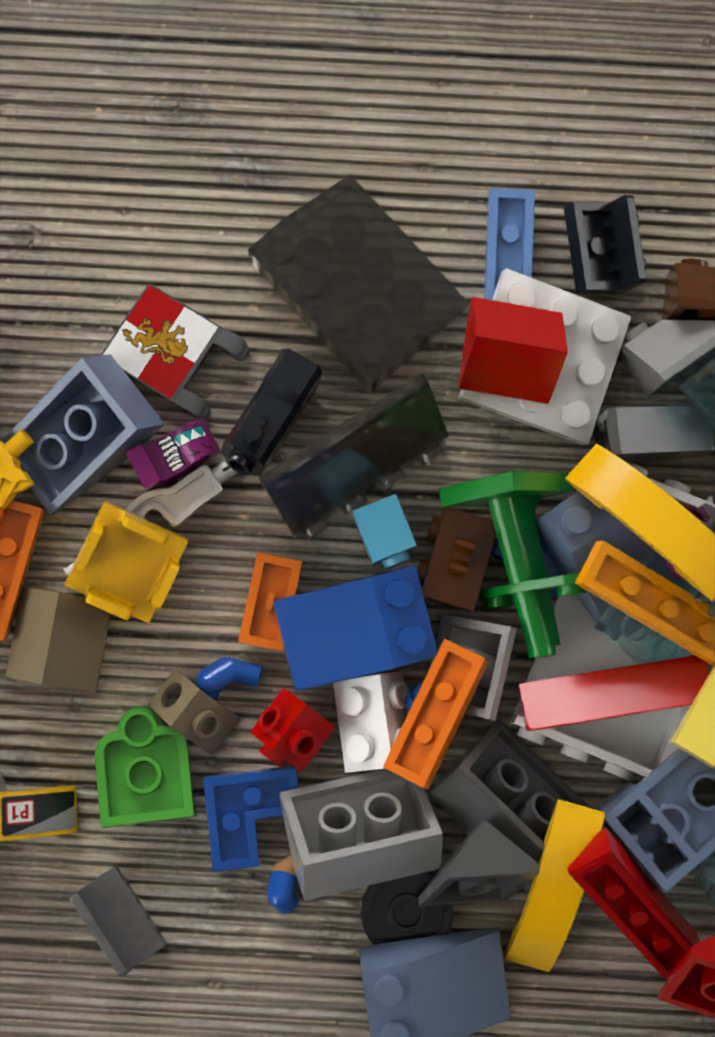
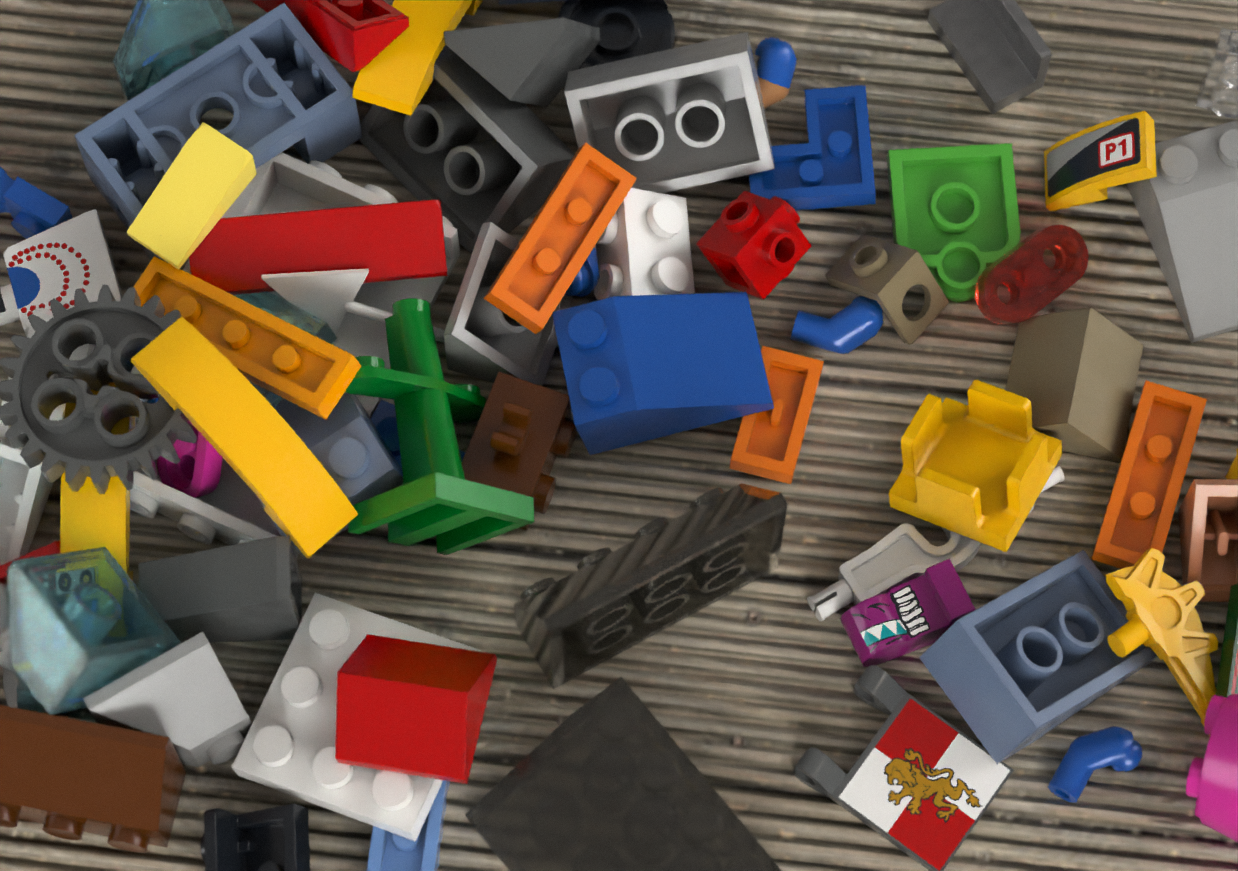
camera: 175 degrees left, 15 degrees down
(44, 369) = (1090, 752): none -> blue arm
(86, 719) = (1027, 276): none -> clear red plate
(271, 413) = (766, 646): black piece -> none
(385, 532) = (613, 488): medium azure brick -> none
(599, 662) = (329, 295): none -> white piece

